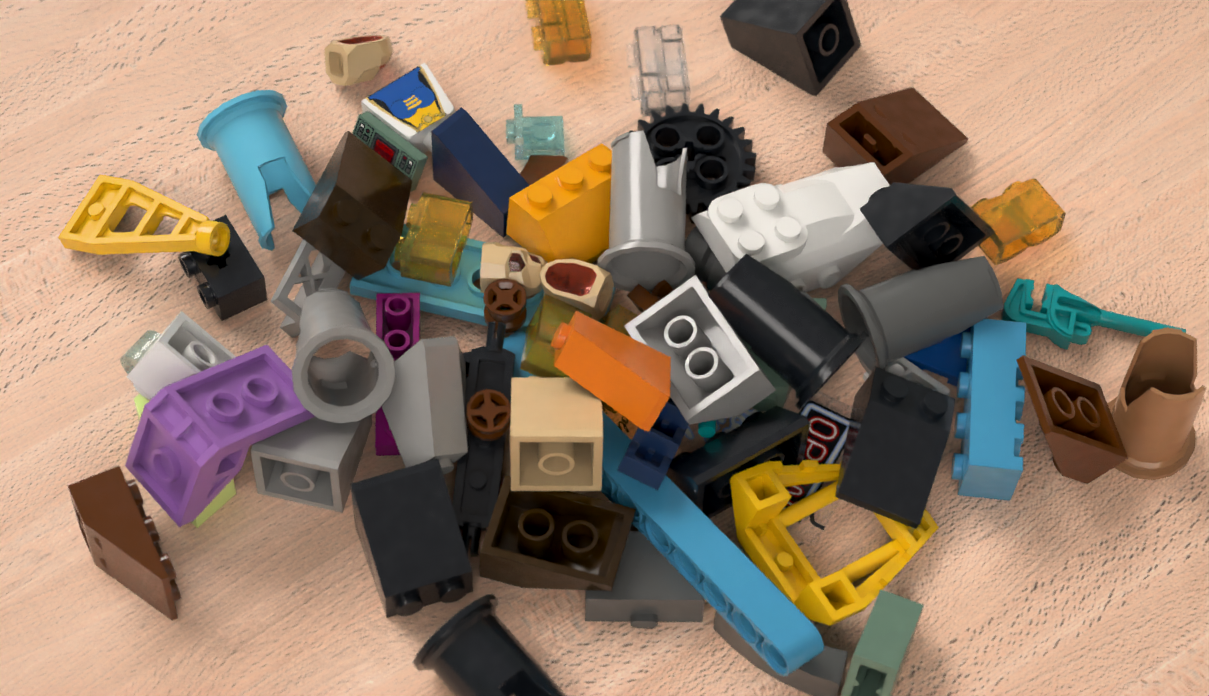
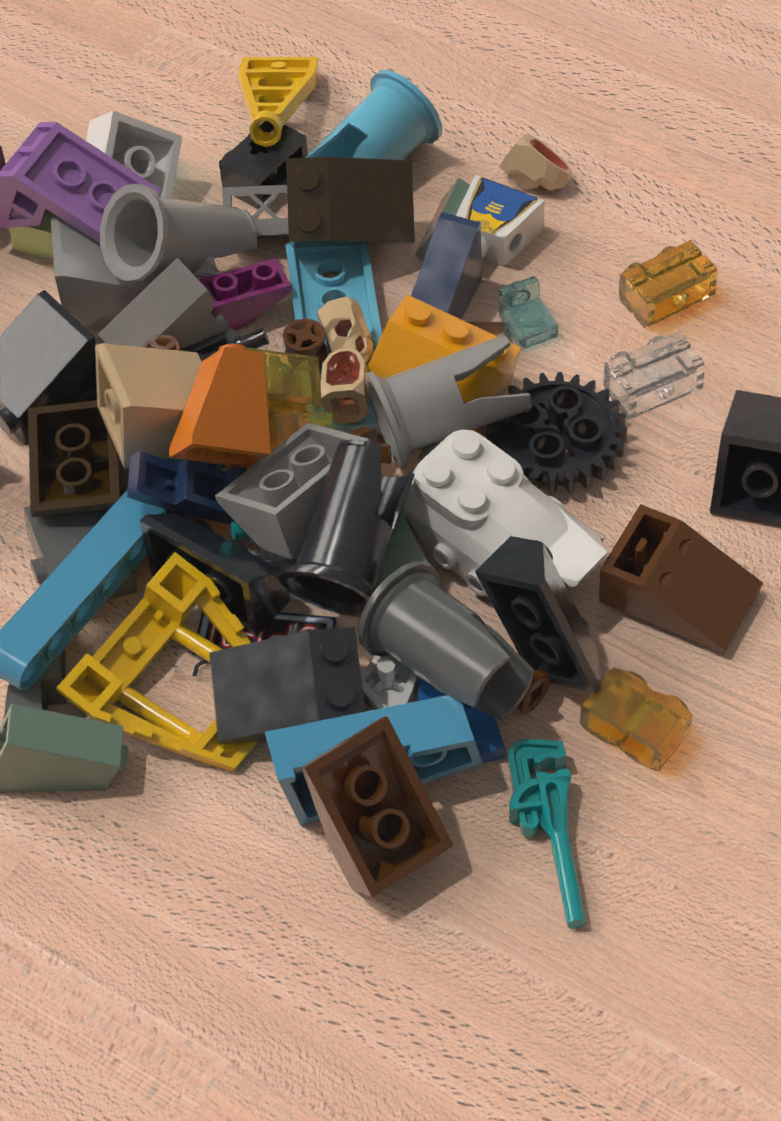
camera: 75 degrees right, 5 degrees down
(434, 238) = (355, 271): clear yellow brick -> none
(1159, 405) = (408, 919): medium nougat piece -> none

